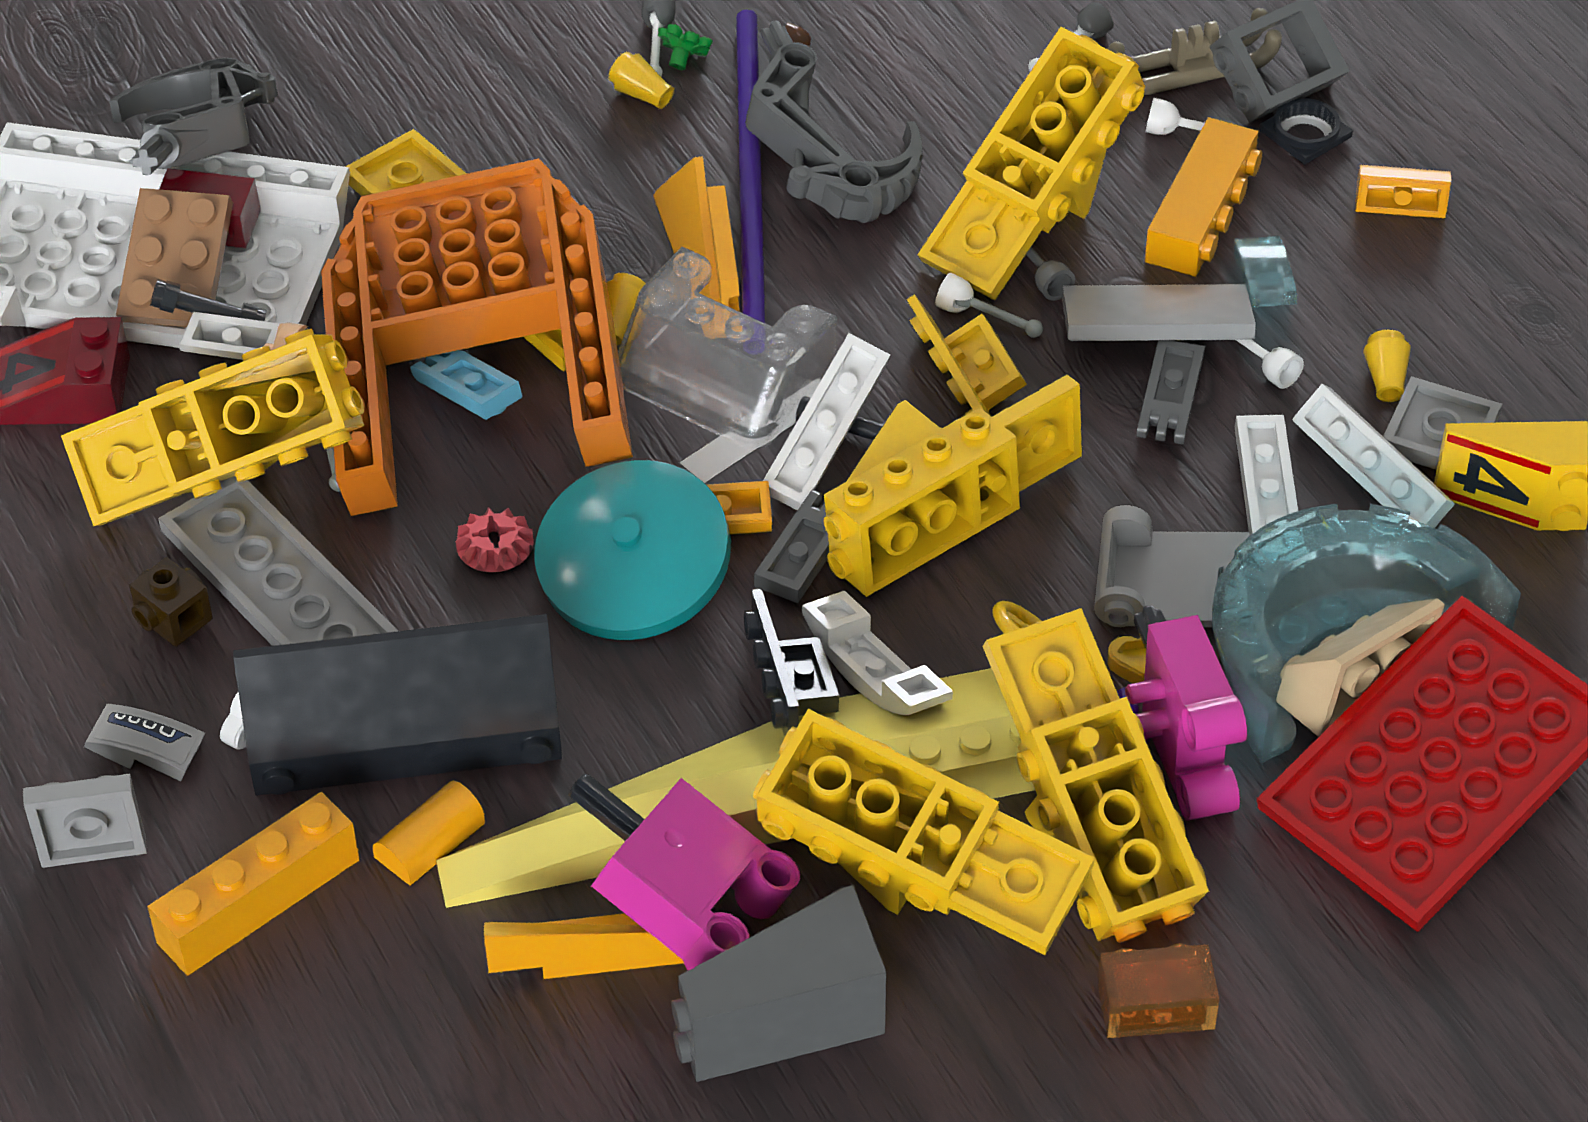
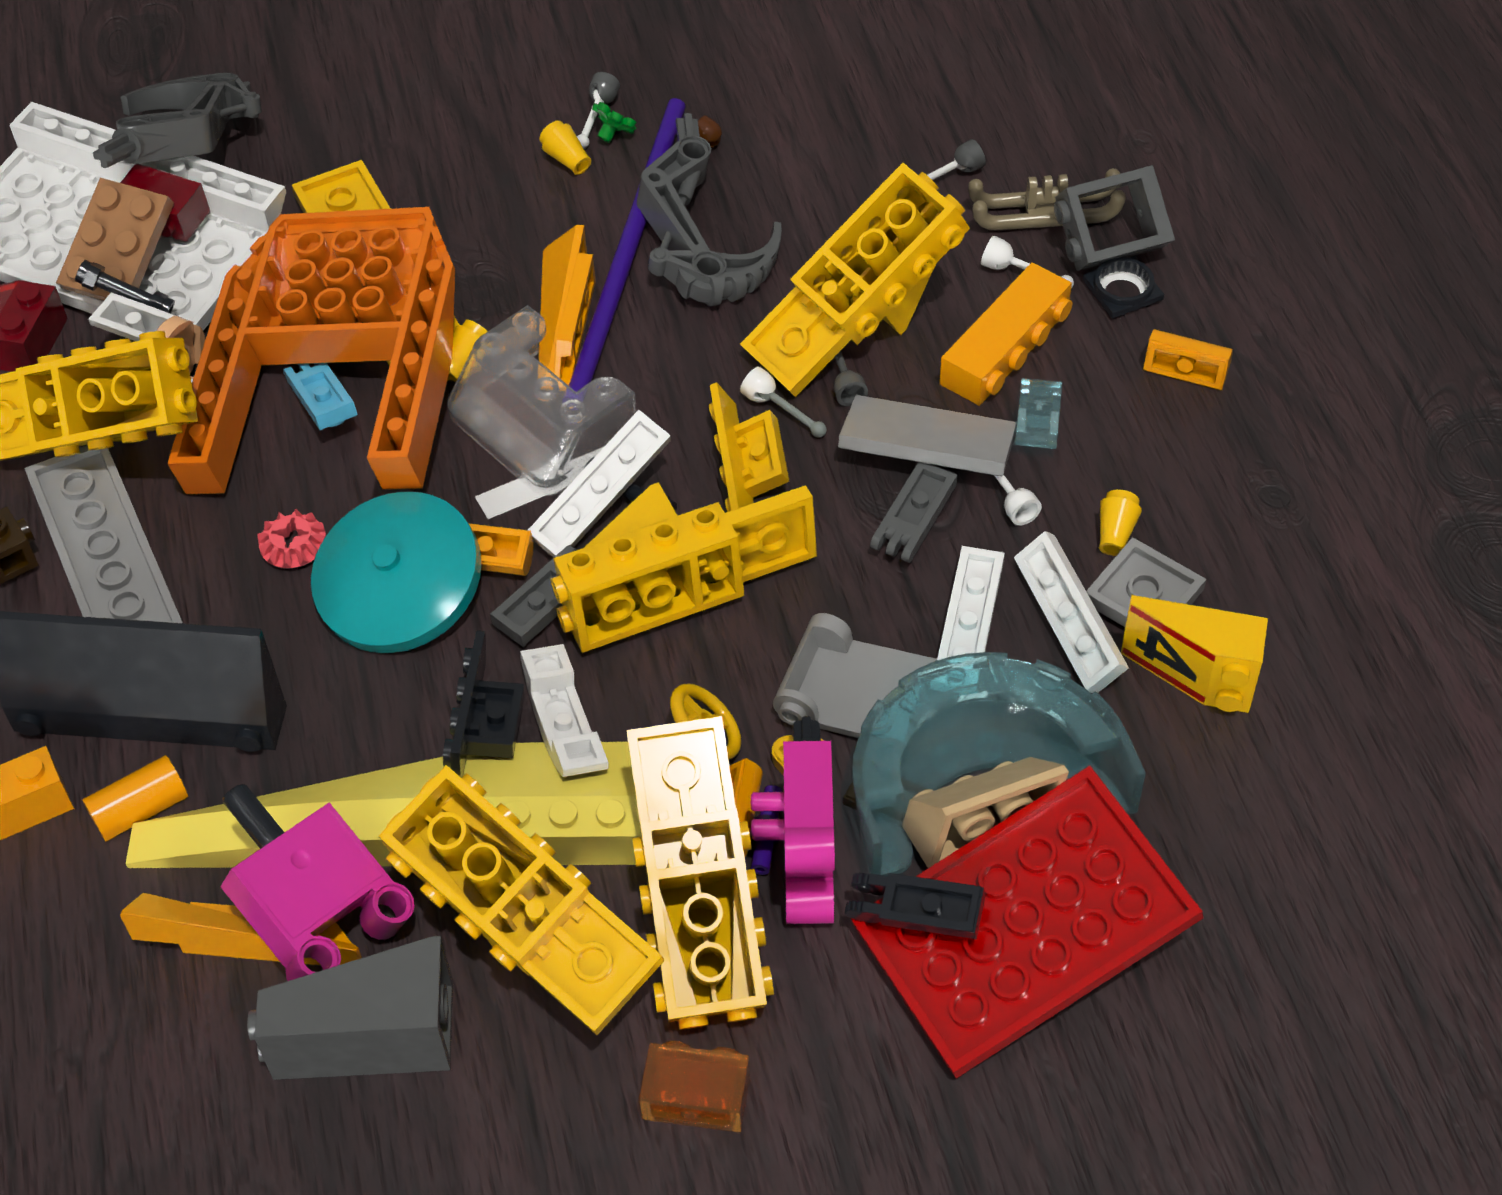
camera: 15 degrees right, 5 degrees up
(1328, 765) = (919, 904): none -> black hinge

